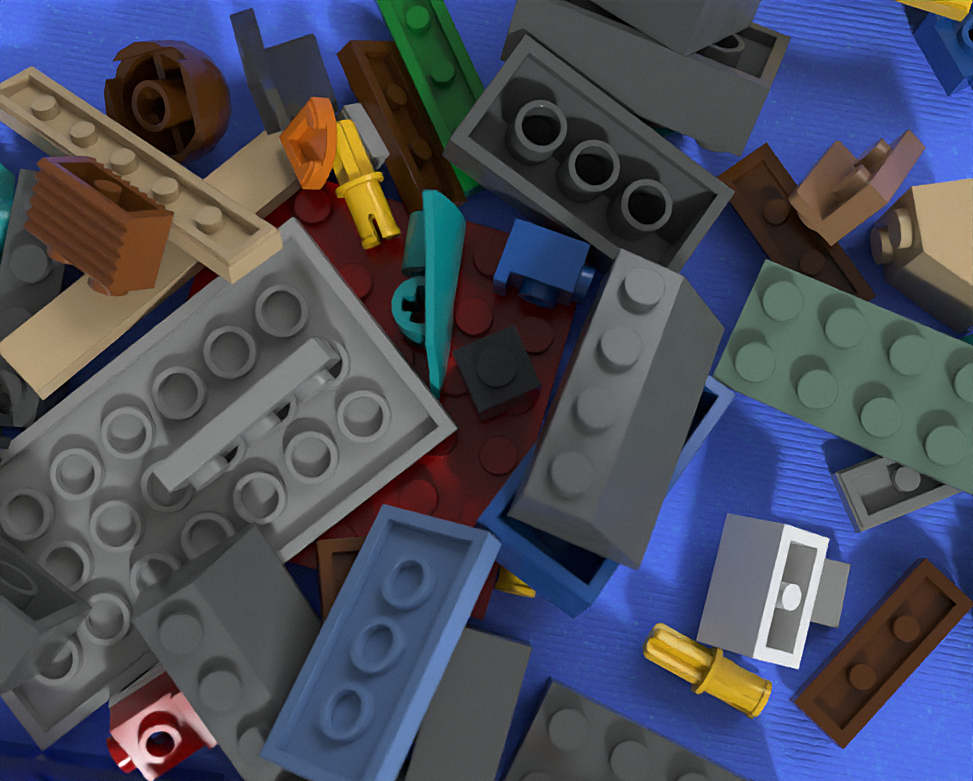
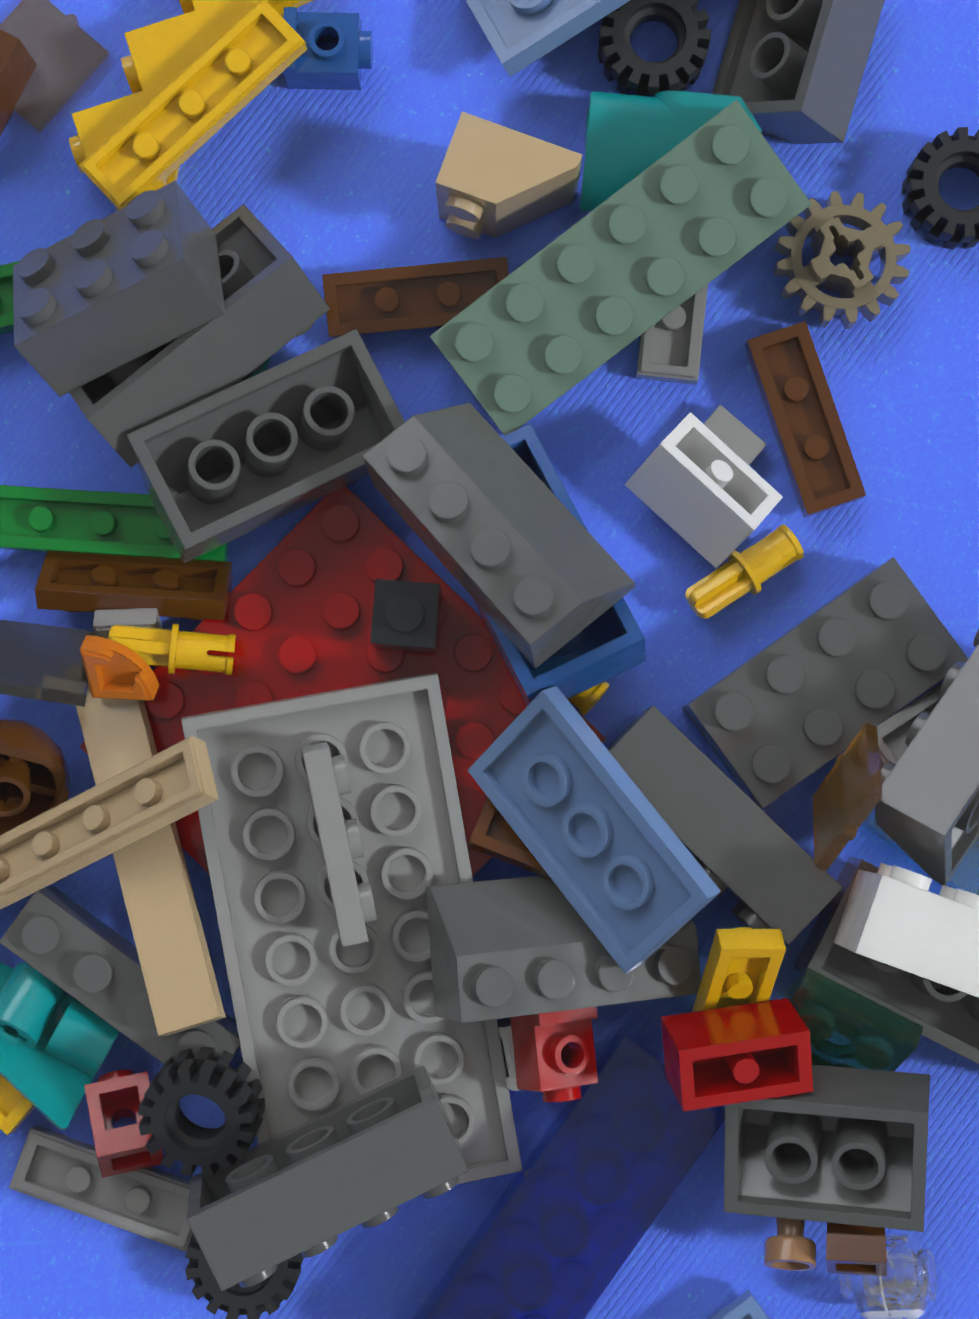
camera: 65 degrees left, 5 degrees up
(98, 224) = (99, 890): dark orange brick -> none
(433, 265) = (273, 616): teal panel -> none
(543, 266) = (334, 526): blue brick -> none
(848, 190) = (403, 225): medium nougat bracket -> none

